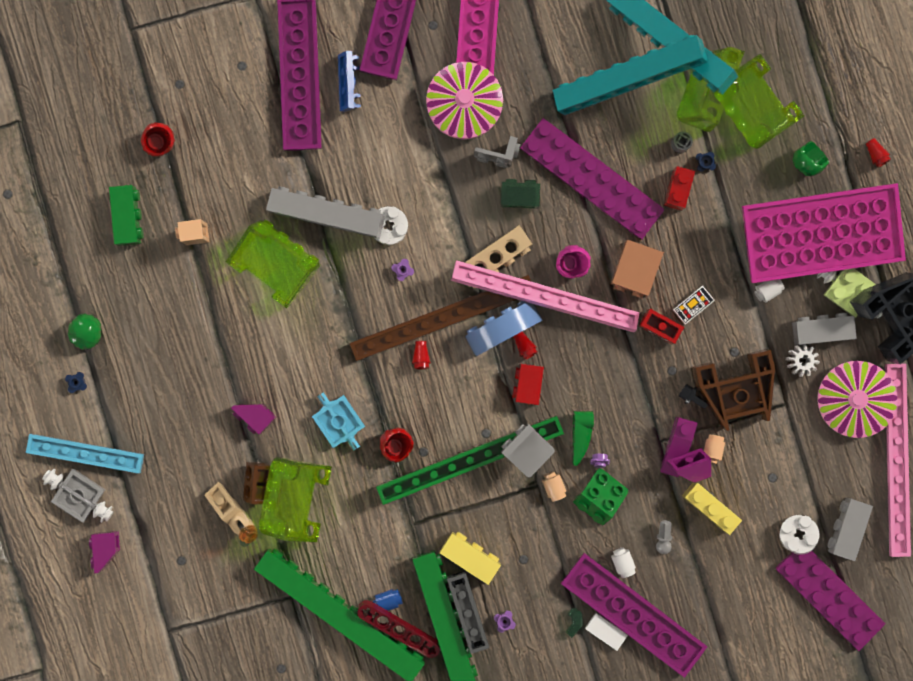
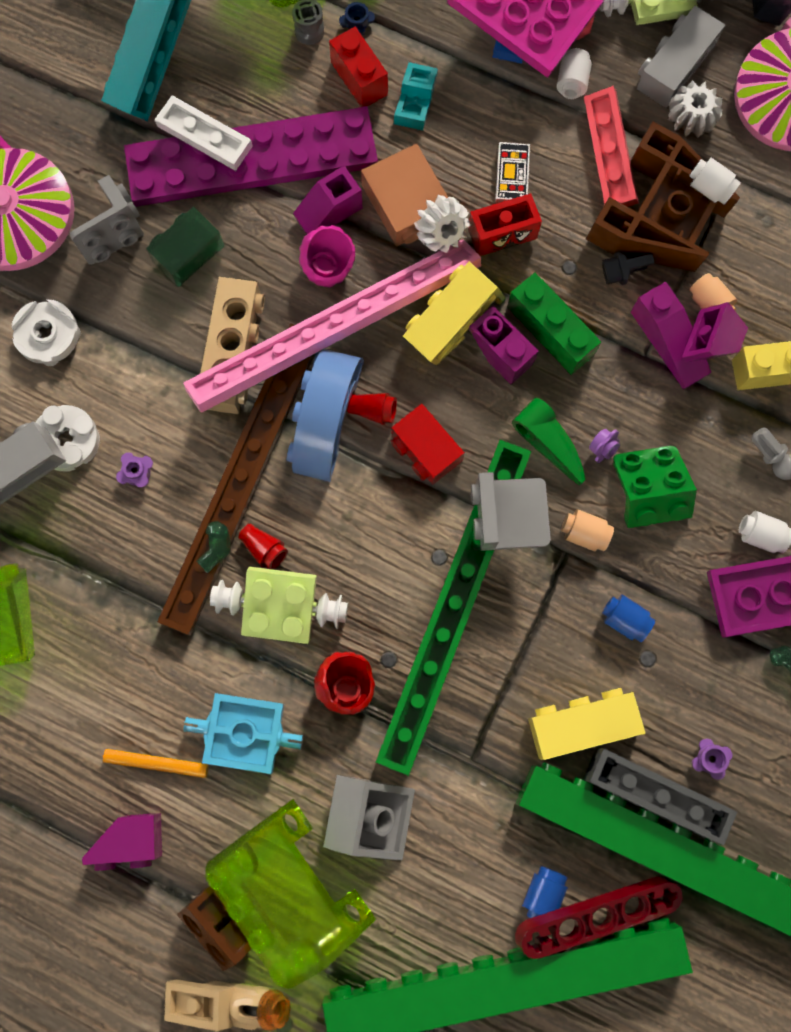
camera: 45 degrees left, 10 degrees down
(294, 397) = (155, 763): none -> light orange bar
(352, 503) = (368, 818): none -> light grey slope
(402, 386) = (278, 604): none -> yellowish green plate
(403, 339) = (218, 546): none -> clear green arm
(417, 163) = (51, 348): none -> white plate
(531, 536) = (628, 618): none -> blue brick
(579, 152) = (203, 133): none -> white plate
(598, 341) = (452, 312): none -> light yellow wedge
(599, 238) = (329, 201): none -> magenta slope
(604, 376) = (503, 345): none -> magenta slope
(634, 300) = (442, 223): none -> white gear
(635, 389) = (553, 323): none -> green brick
(691, 225) = (415, 96): none -> teal slope
(745, 339) = (610, 147): none -> coral plate
(763, 403) = (714, 180): none -> white brick

